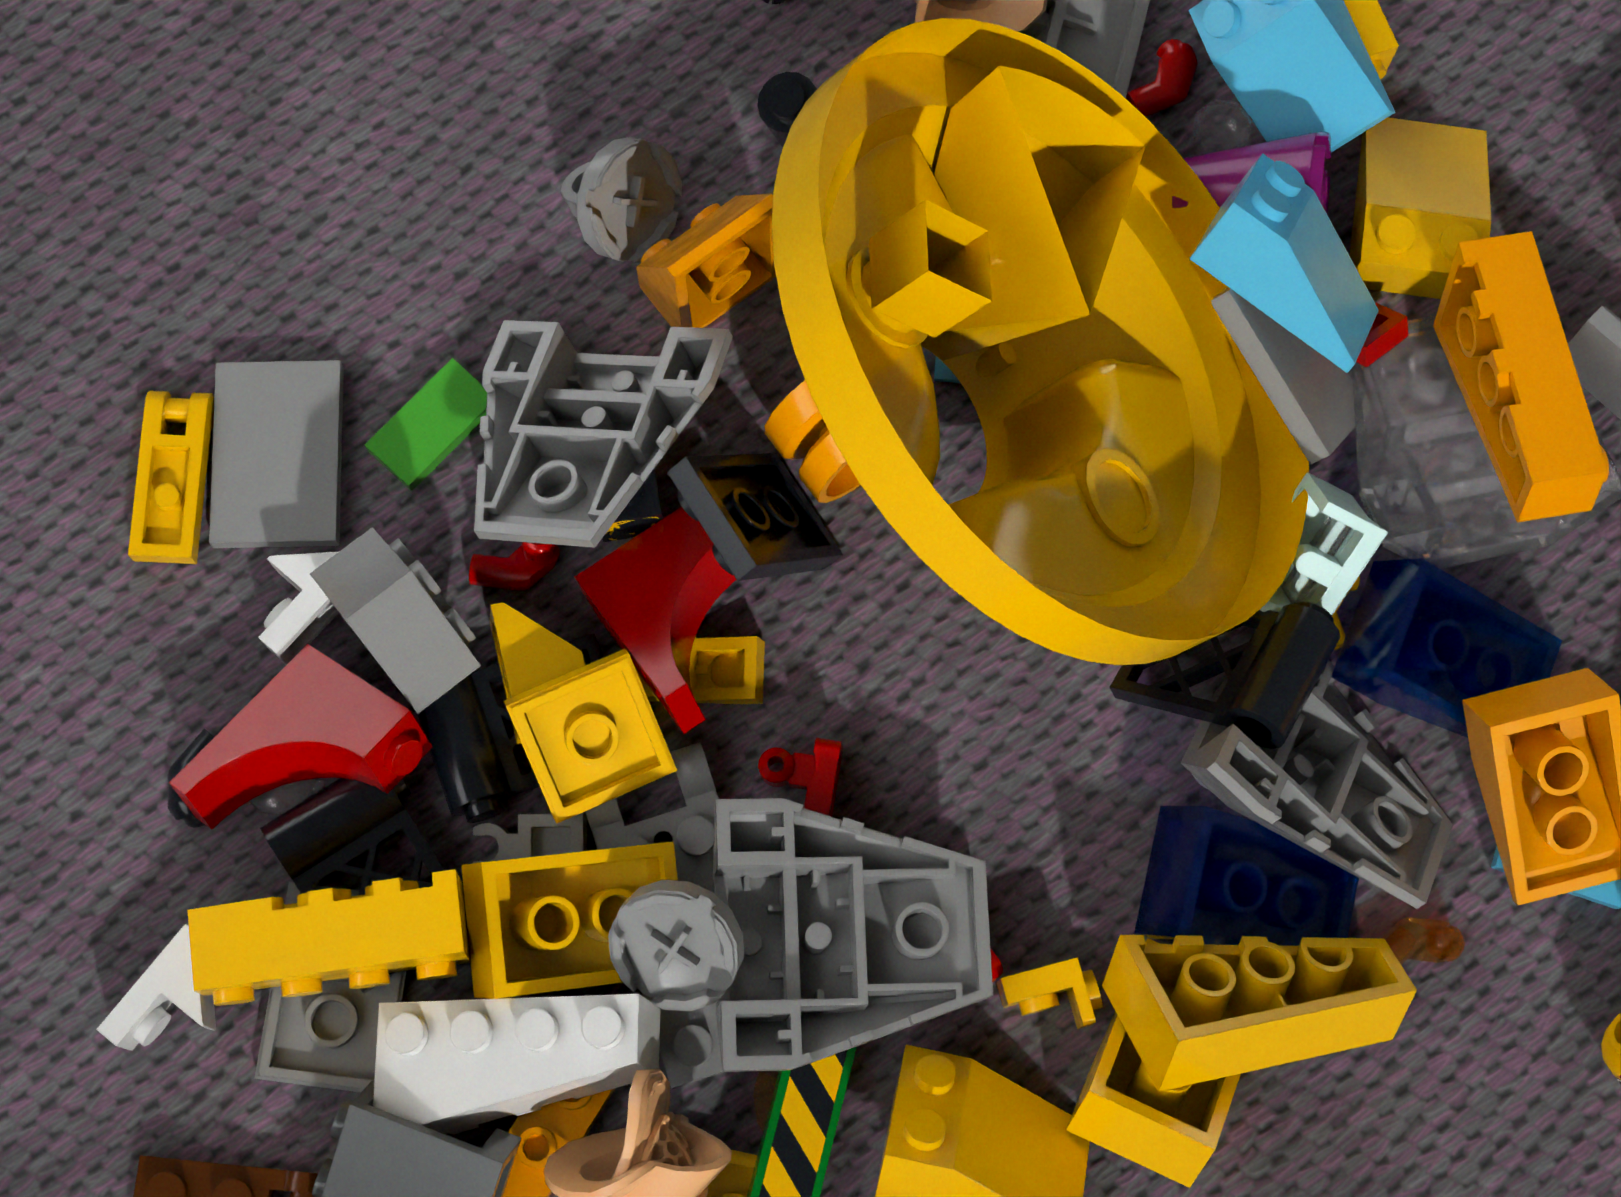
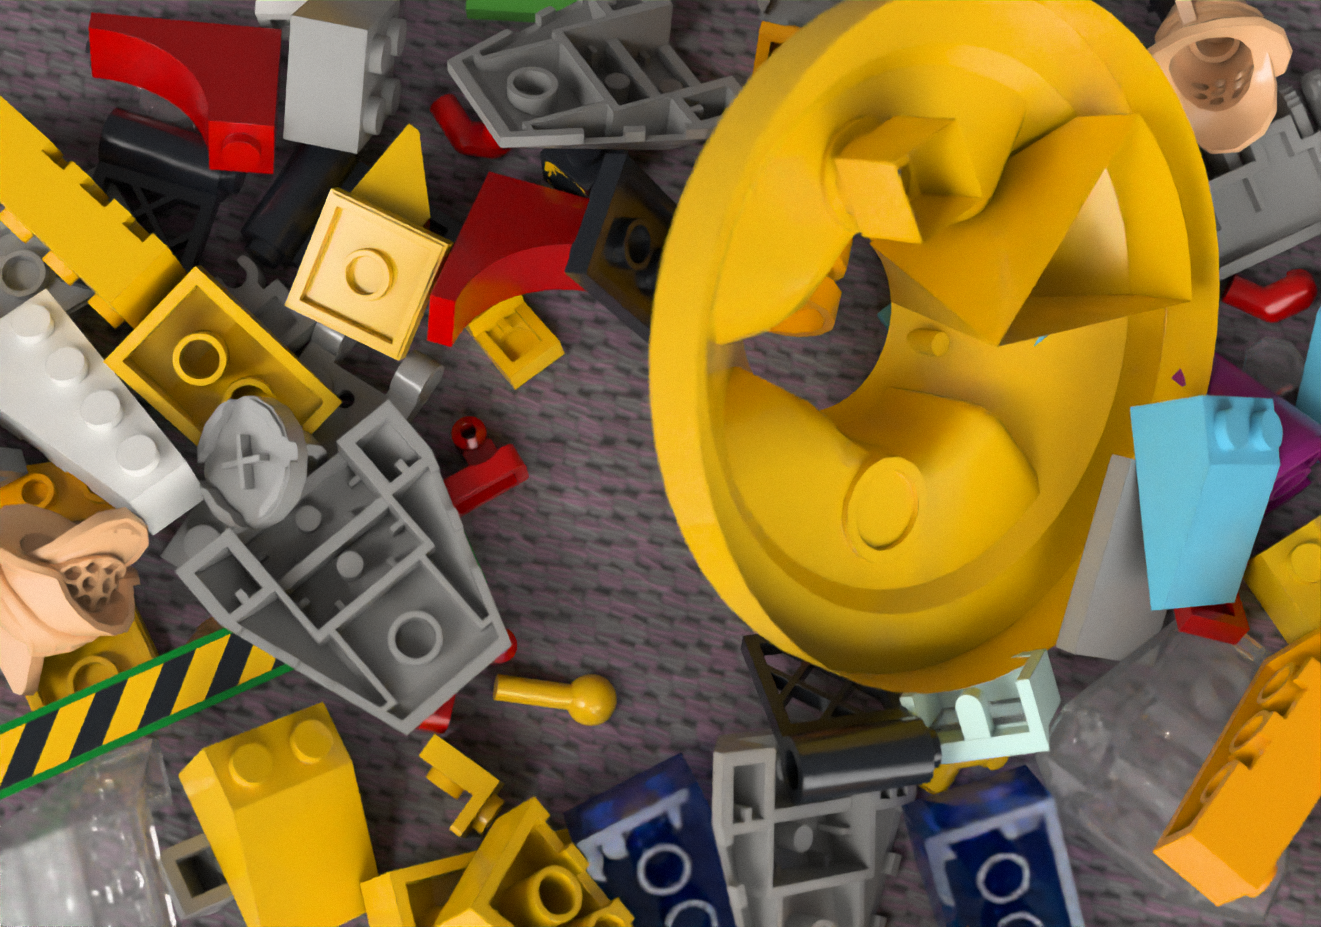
camera: 45 degrees right, 0 degrees up
(1057, 846) = (587, 699): none -> yellow bar

